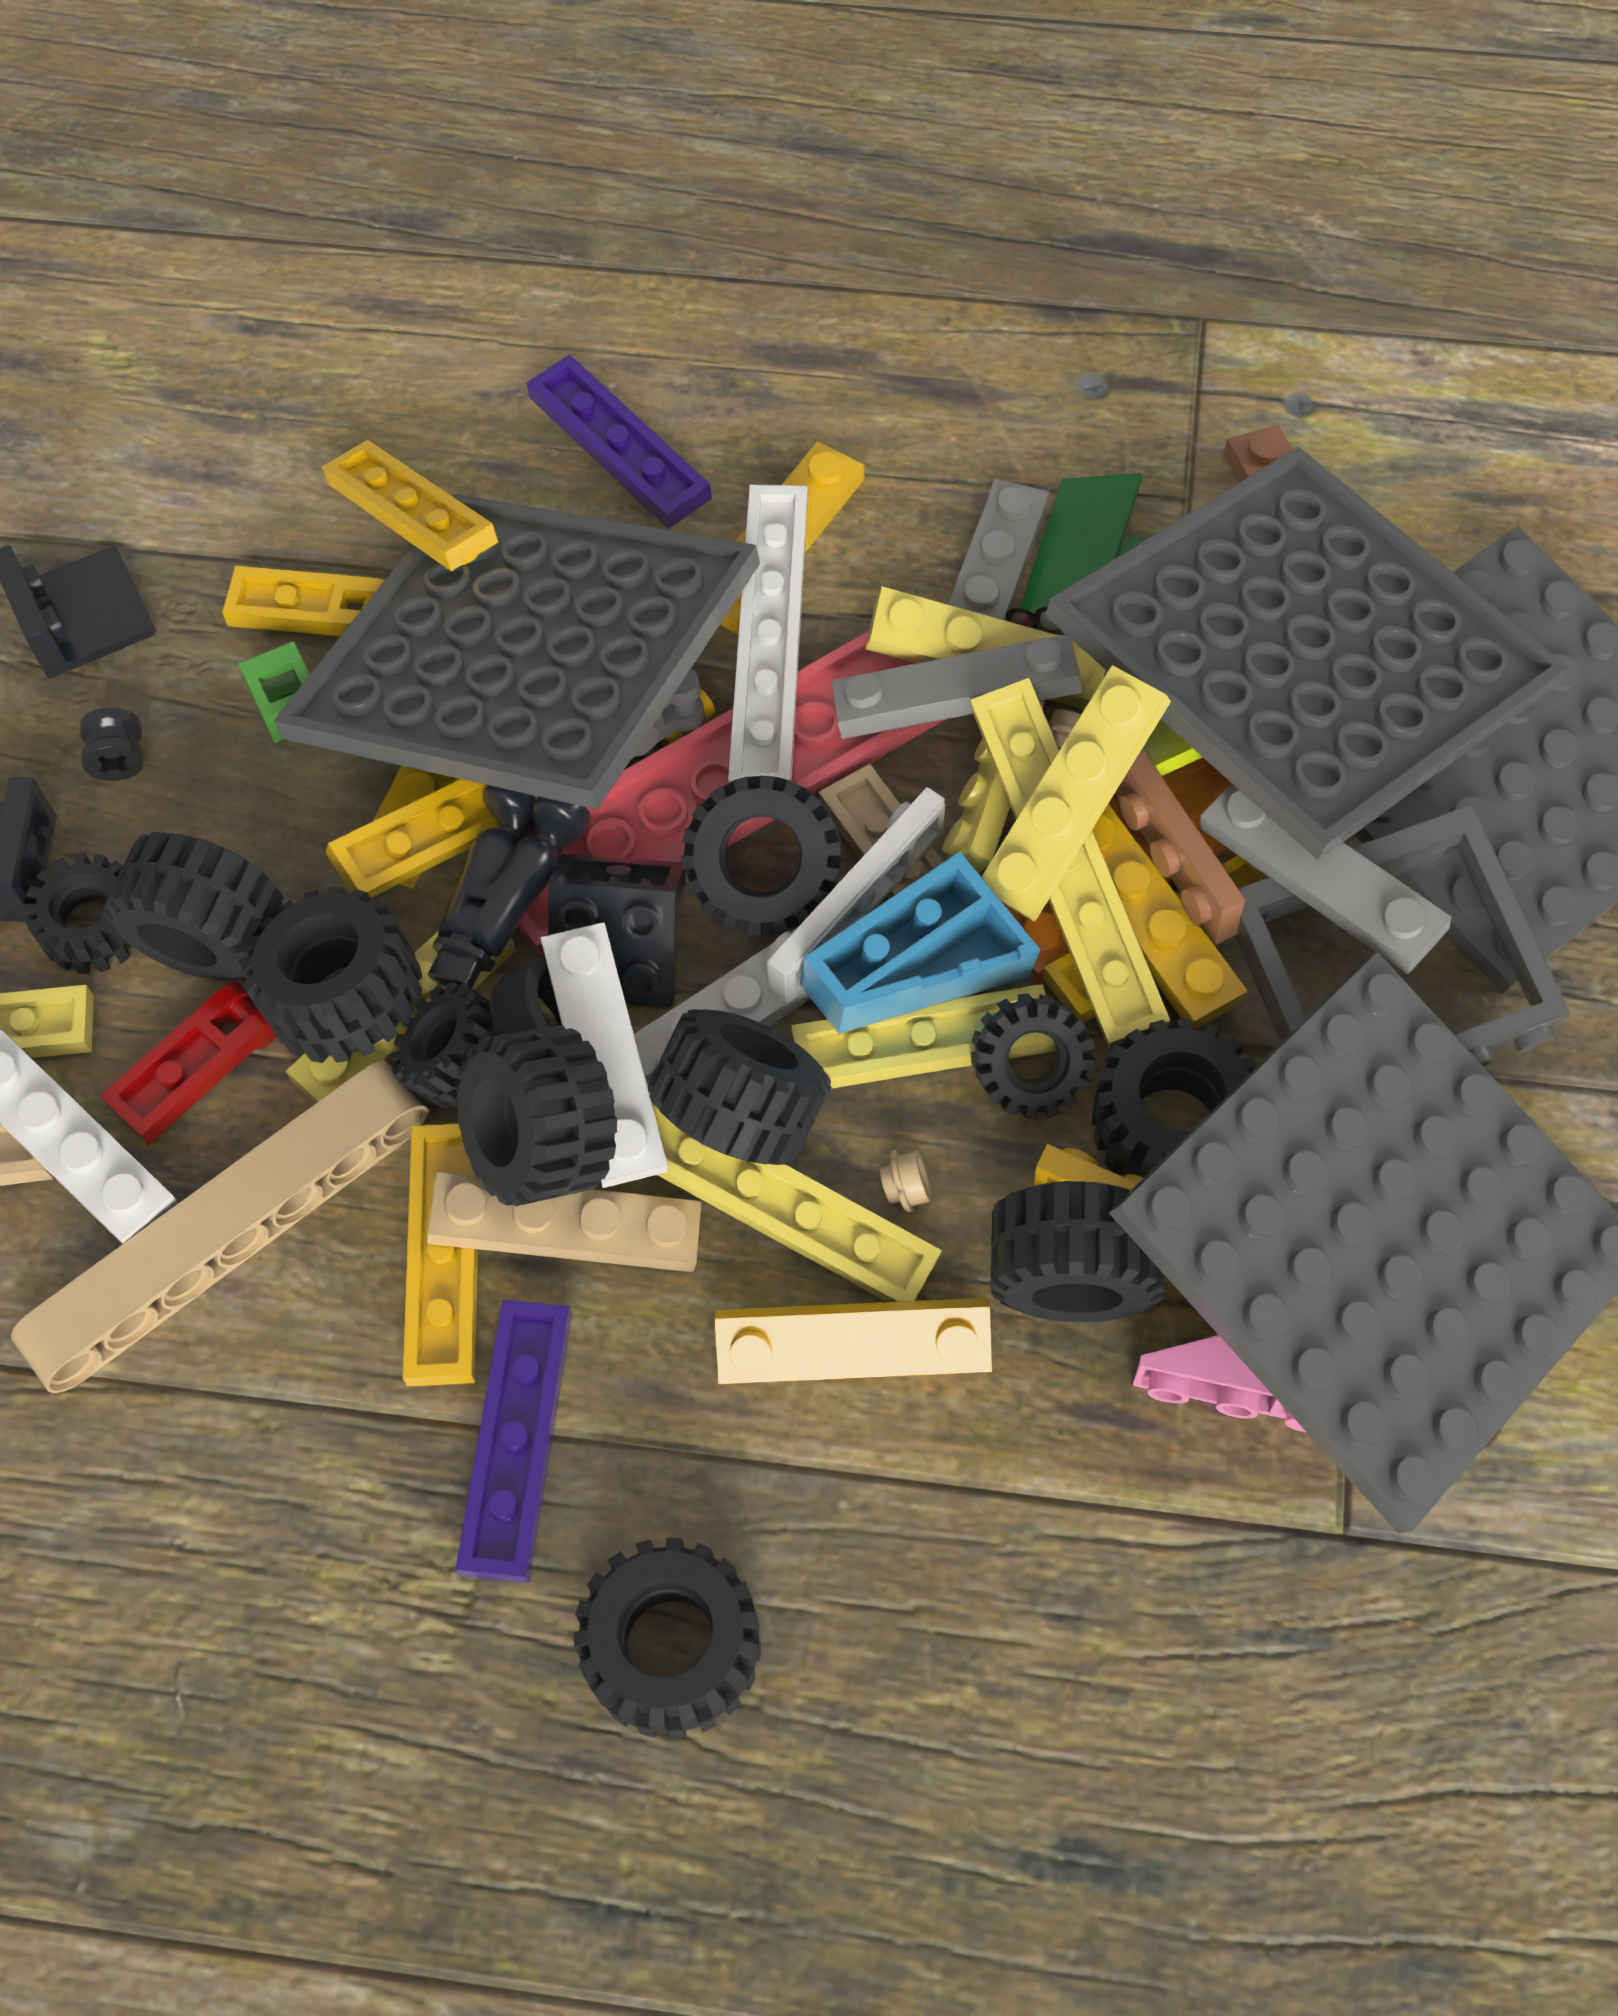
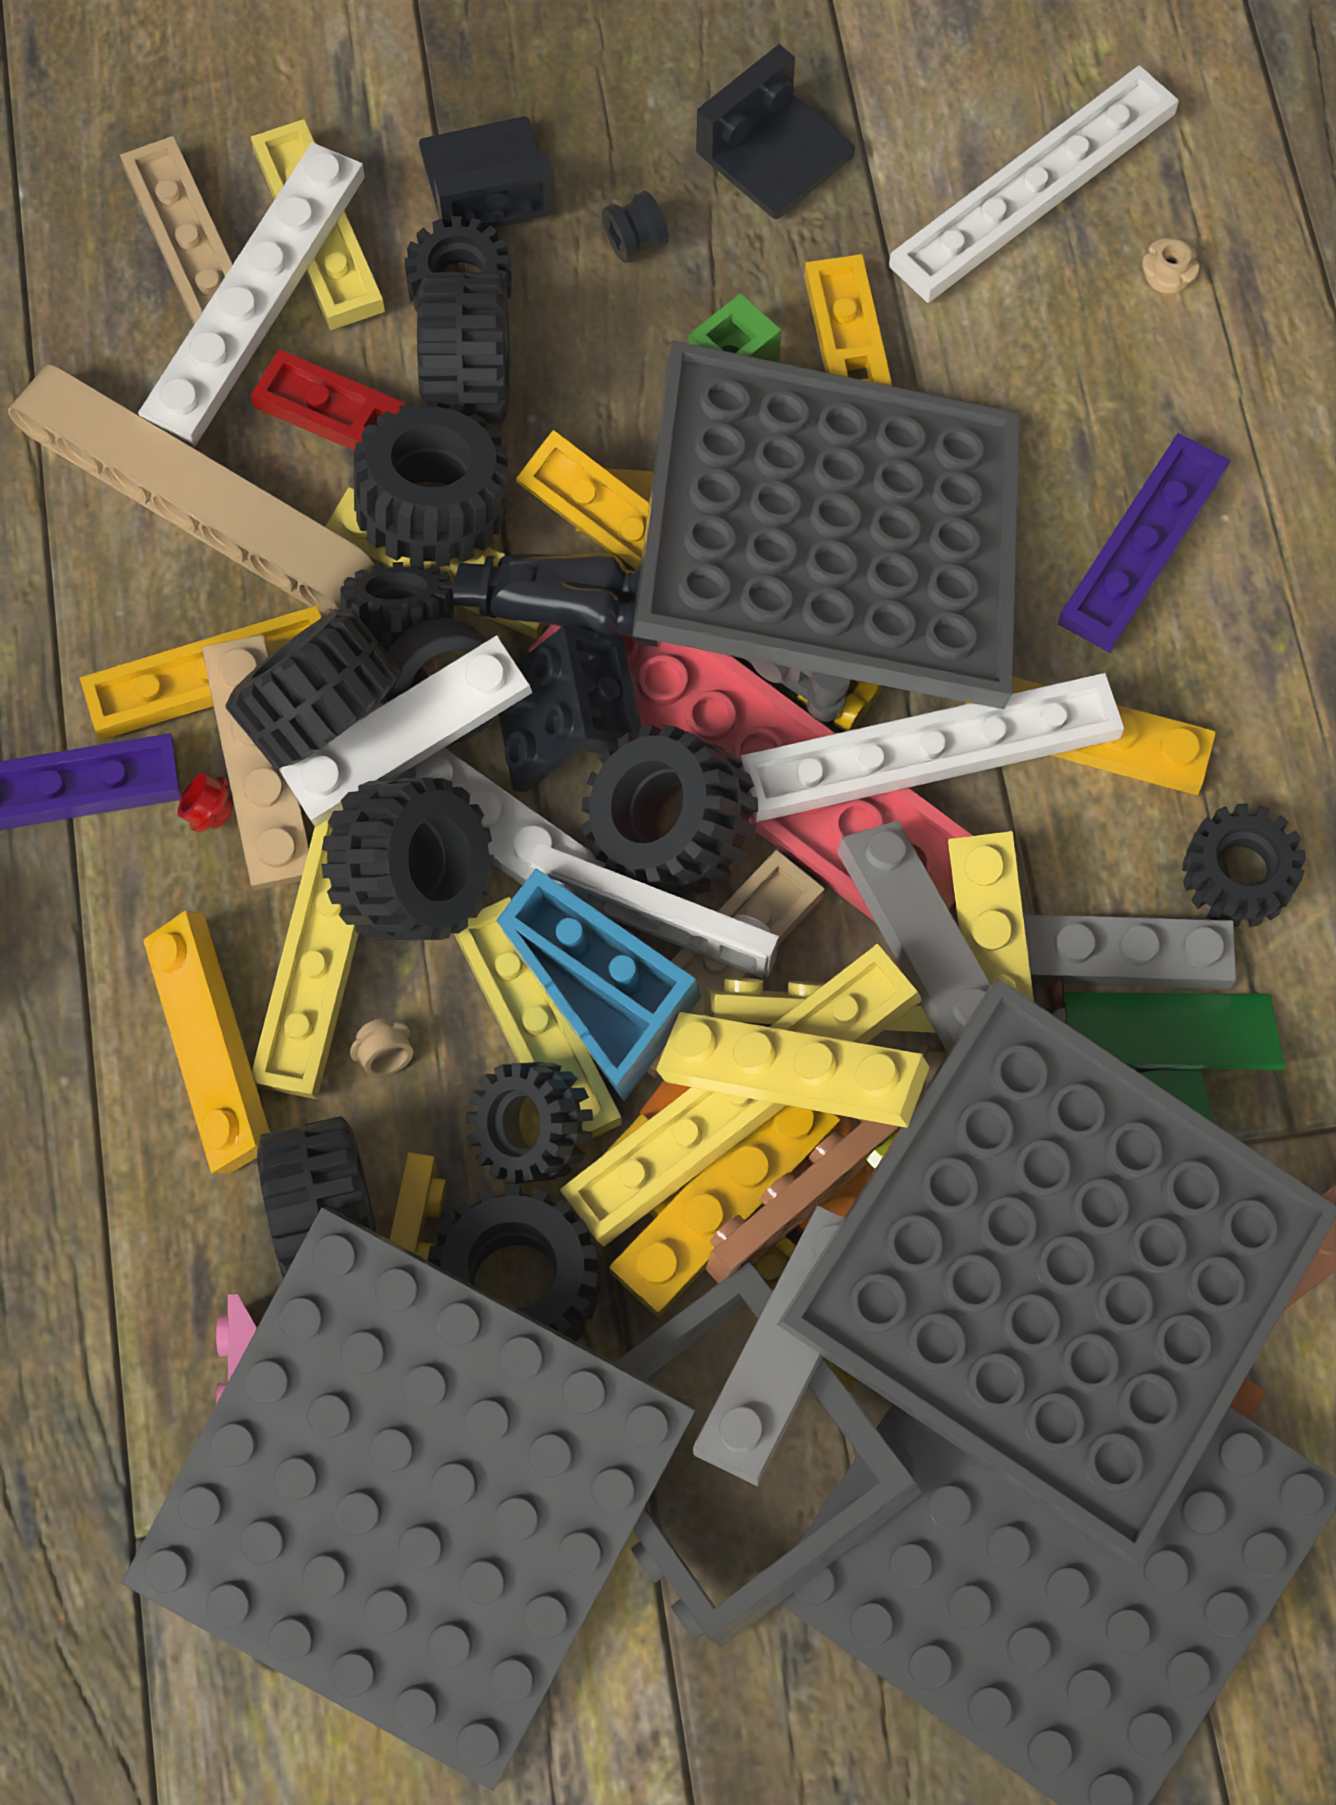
camera: 70 degrees right, 5 degrees up
(224, 424) = (1033, 184): none -> white plate
(352, 349) = (1167, 276): none -> tan plate
(410, 505) = (976, 375): yellow plate -> none
(589, 1286) = (205, 803): none -> red plate
(947, 432) = (1259, 835): none -> black tyre

